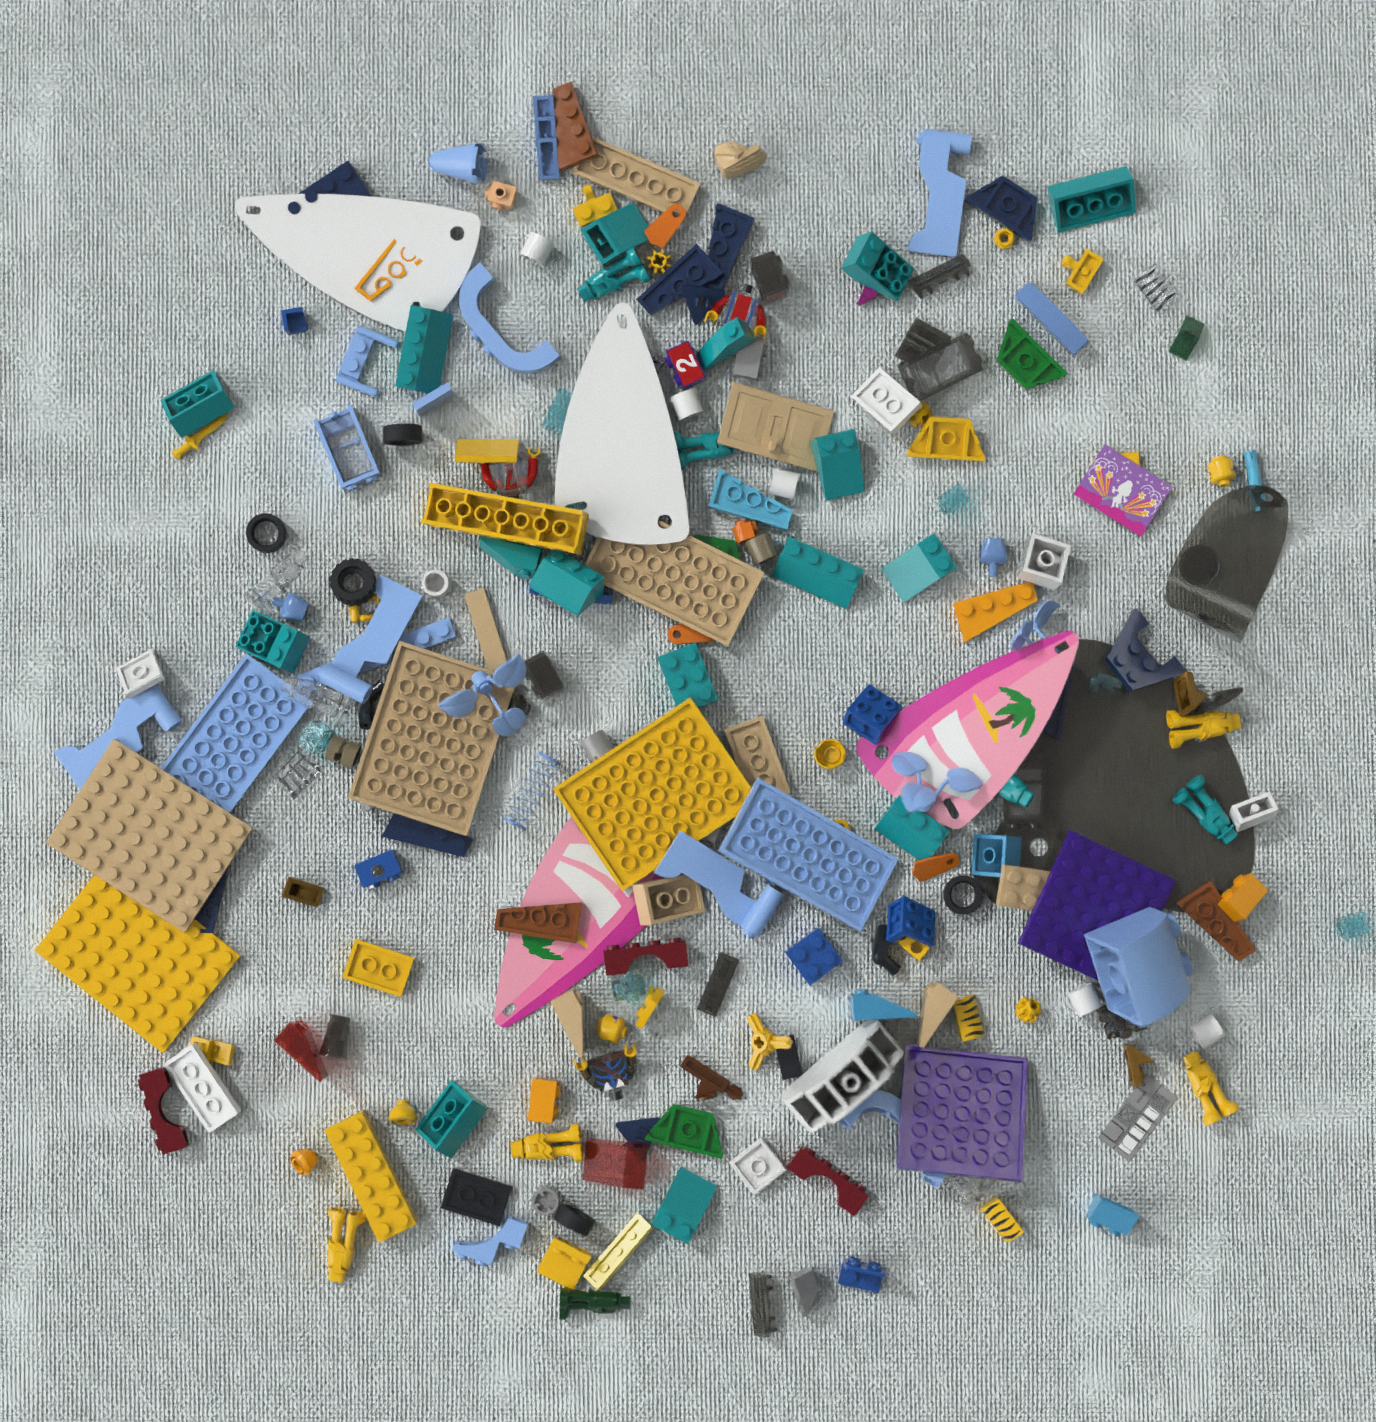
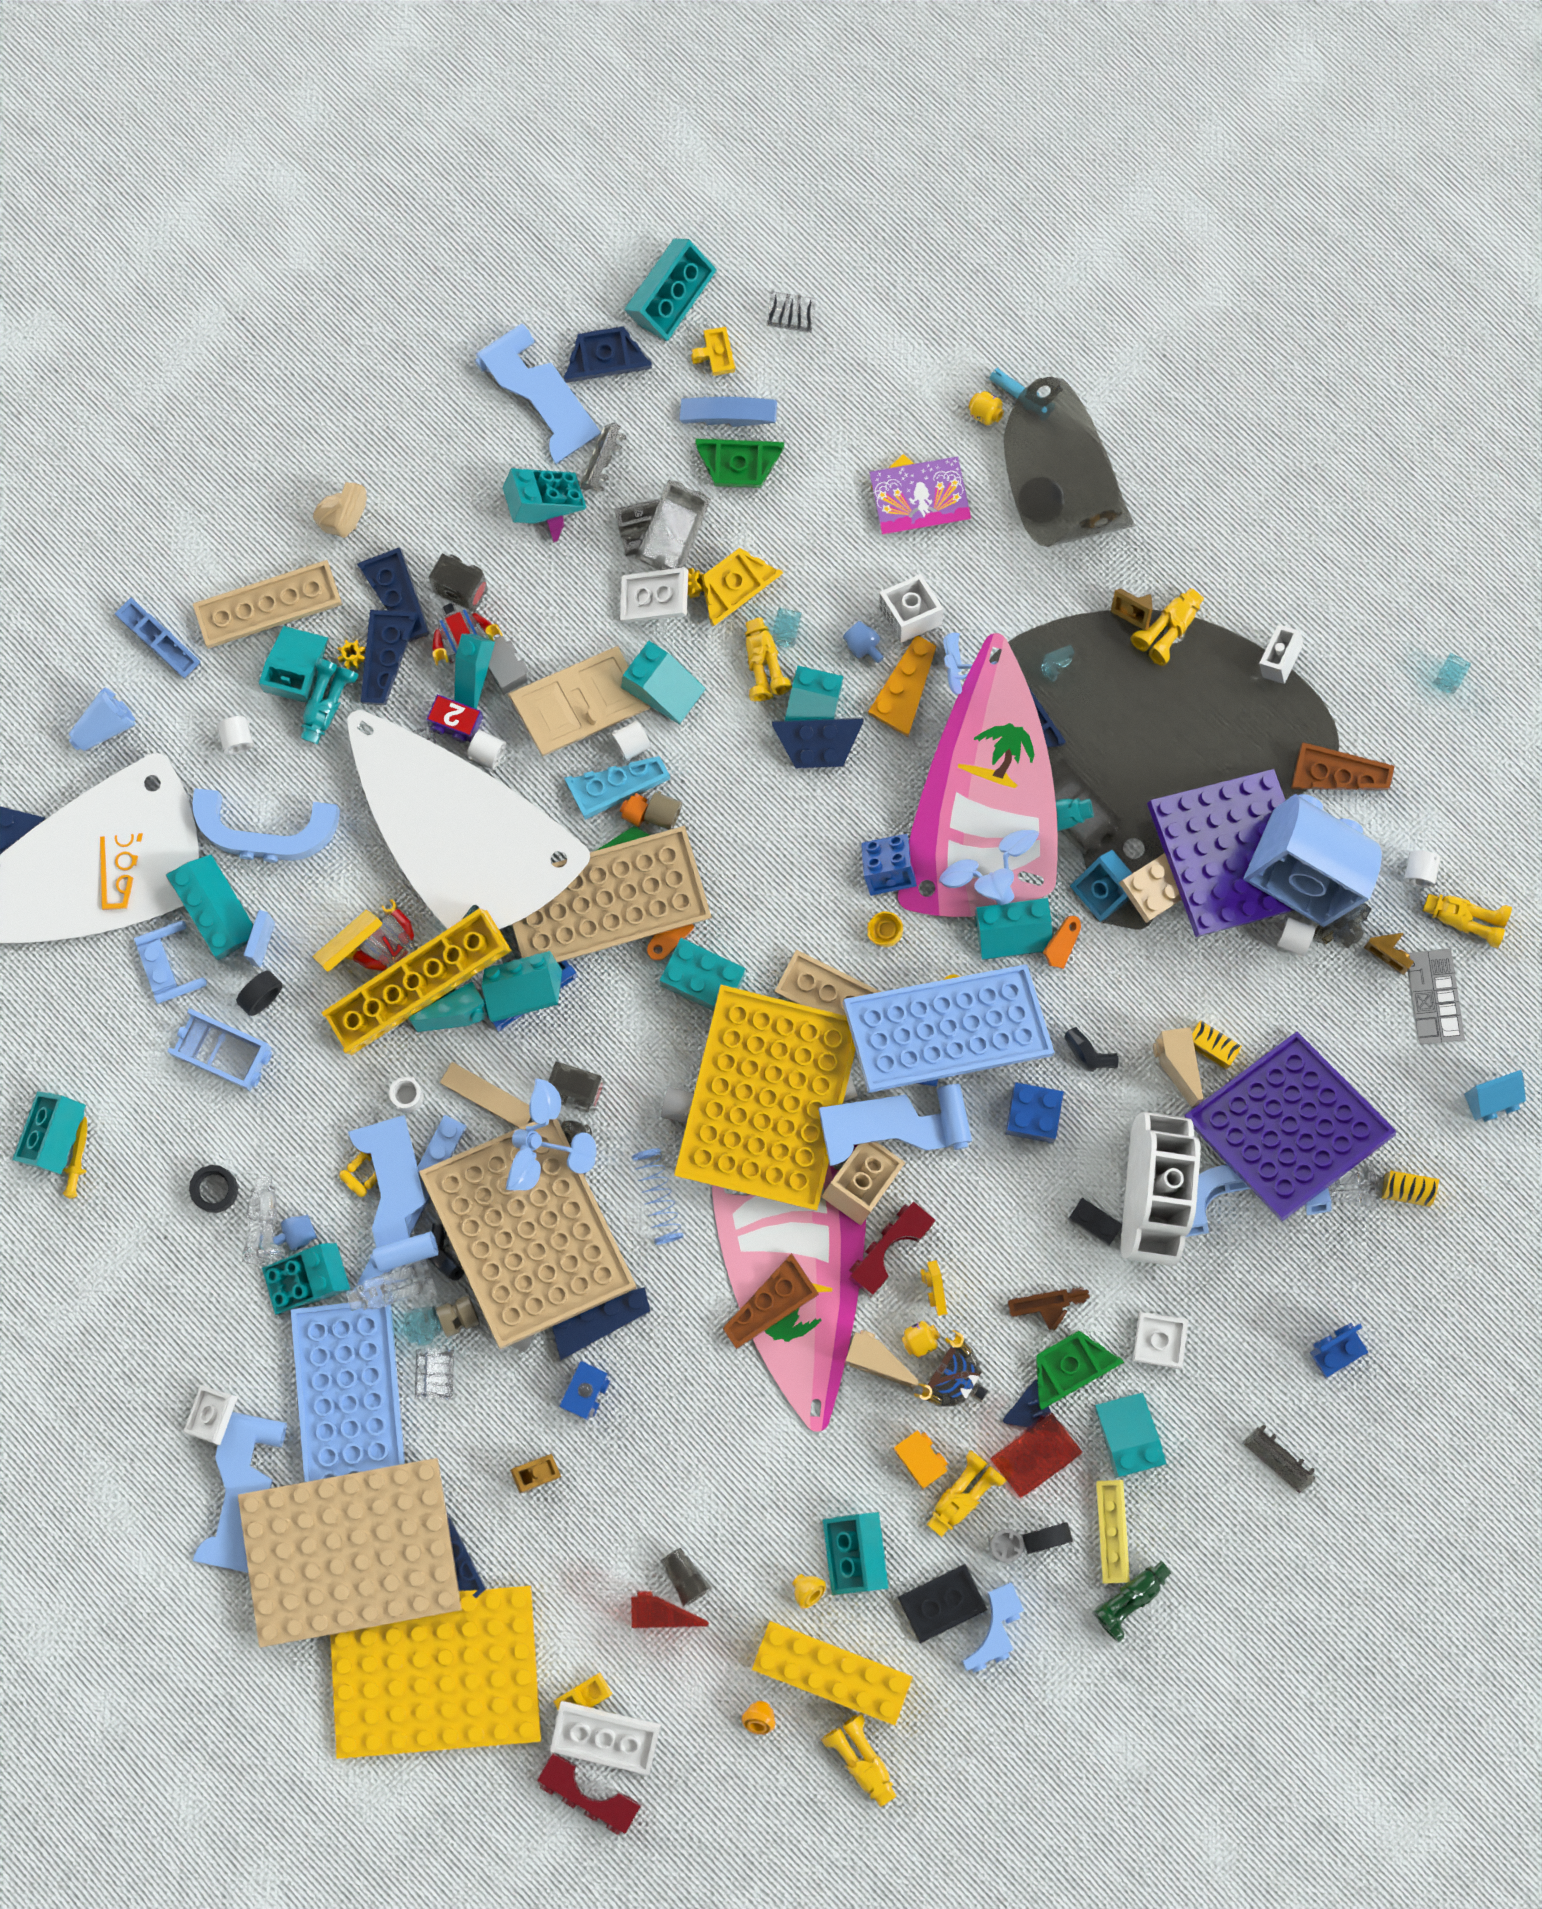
camera: 45 degrees left, 10 degrees down
(294, 320) = (73, 983): blue panel -> none
(353, 566) = (347, 1168): black tyre -> none
(378, 967) = (665, 1479): yellow plate -> none
(501, 196) = (162, 719): light nougat brick -> none
(557, 413) = (381, 857): clear light blue brick -> none
(564, 1262) = (1074, 1587): yellow bracket -> none
(572, 131) = (179, 614): dark orange wing -> none
(594, 207) = (251, 660): yellow plate -> none
(628, 987) = (901, 1288): clear light blue brick -> none
(665, 226) = (329, 619): orange piece -> none
(700, 300) = (417, 653): dark blue piece -> none
(708, 441) = (535, 764): teal piece -> none
(718, 984) = (975, 1215): clear smoke plate -> none
(764, 1041) = (1070, 1219): yellow bush -> none
(805, 1288) = (1303, 1408): light grey slope -> none
(806, 1164) = (1262, 1290): dark red arch -> none
(817, 572) = (729, 788): teal slope -> none
(869, 1007) = (1120, 1111): dark azure slope -> none
(902, 593) = (818, 741): none -> dark blue wing
(911, 920) = (1084, 1003): blue bracket -> none
(913, 947) = (1105, 1024): yellow leg -> none
(921, 501) = (760, 652): none -> yellow piece
(963, 879) = (1105, 962): black tyre -> none
(1004, 232) = (627, 377): yellow plate -> none
(1028, 1010) = (1258, 989): yellow gear -> none
(1132, 660) = (1065, 622): dark blue wing -> none
(1186, 337) = (854, 330): clear green slope -> none
(1213, 817) = (1252, 689): teal piece -> none
(1220, 698) = (1163, 588): clear smoke slope -> none
(1242, 896) = (1341, 731): light orange brick -> none

